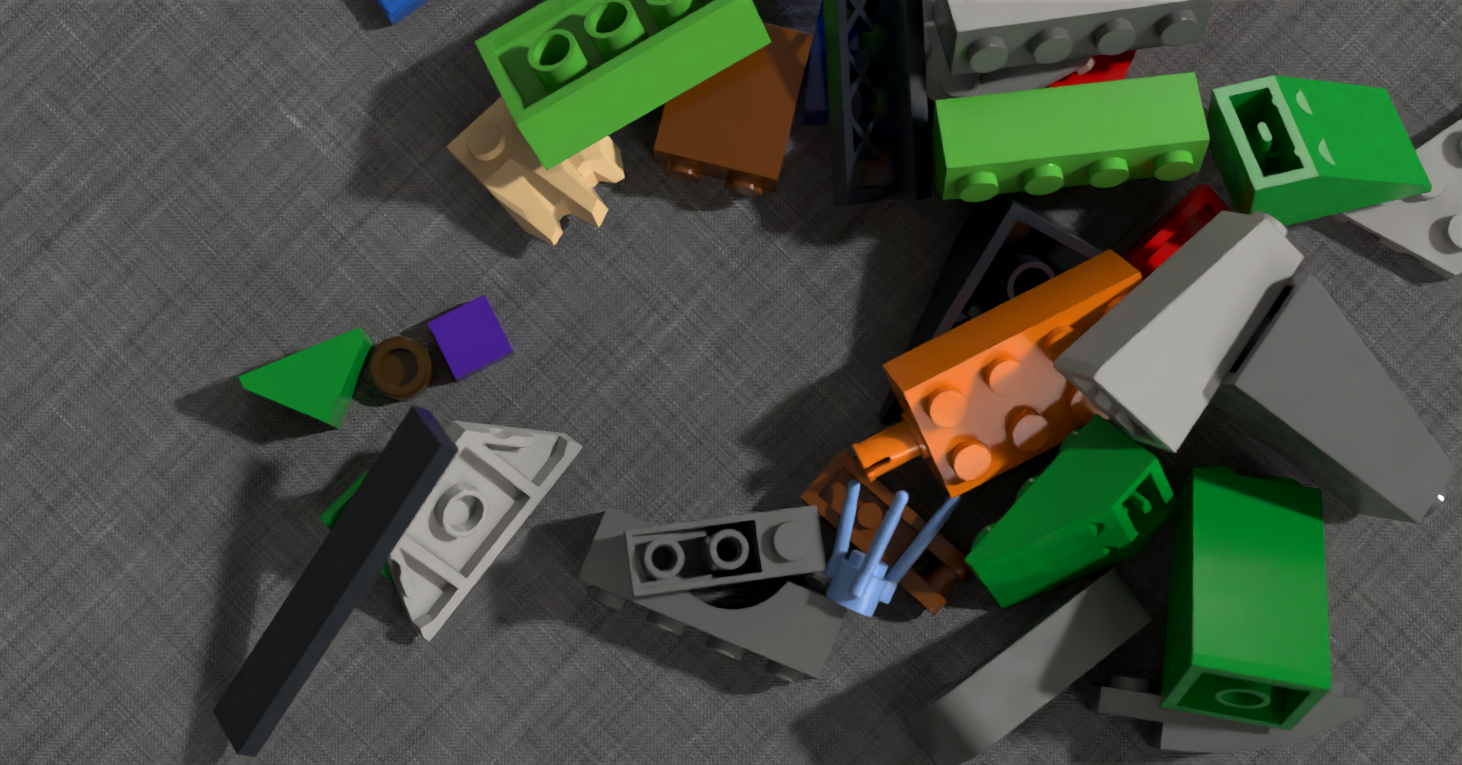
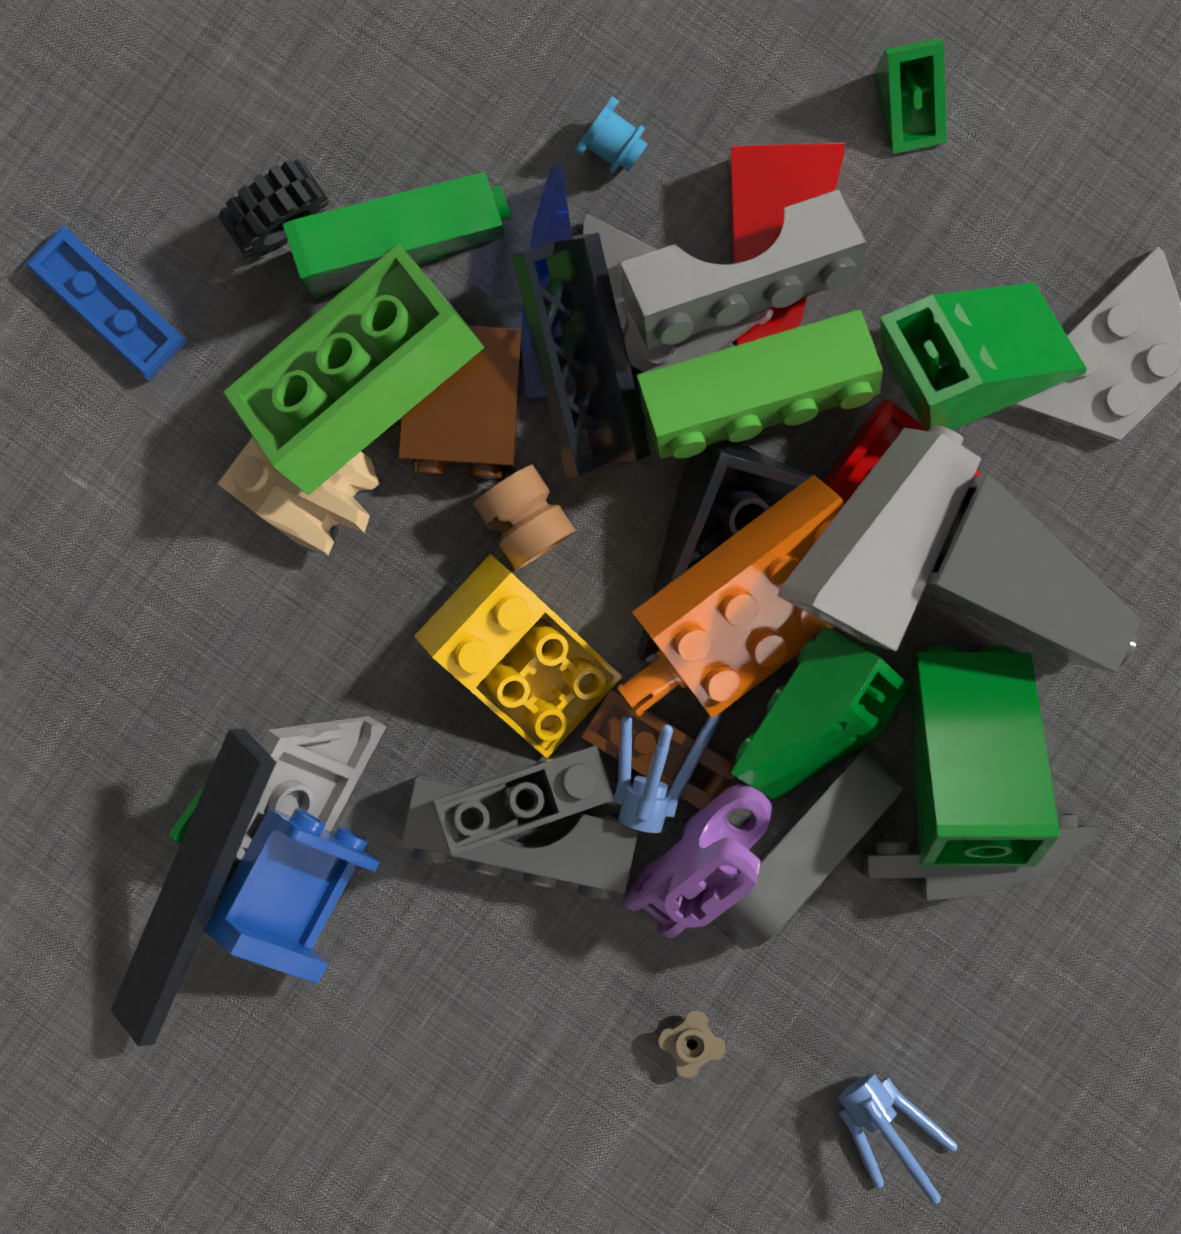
camera: 10 degrees left, 5 degrees up
(317, 379) = (144, 712): green slope -> none
(400, 368) = (215, 685): dark brown tile -> none
(439, 608) = (287, 892): none -> blue panel
(471, 338) = (271, 648): dark purple tile -> none
(745, 394) = (517, 656): none -> yellow slope
(779, 242) = (523, 517): none -> medium nougat wheel
(913, 666) = (700, 872): none -> medium lavender piece

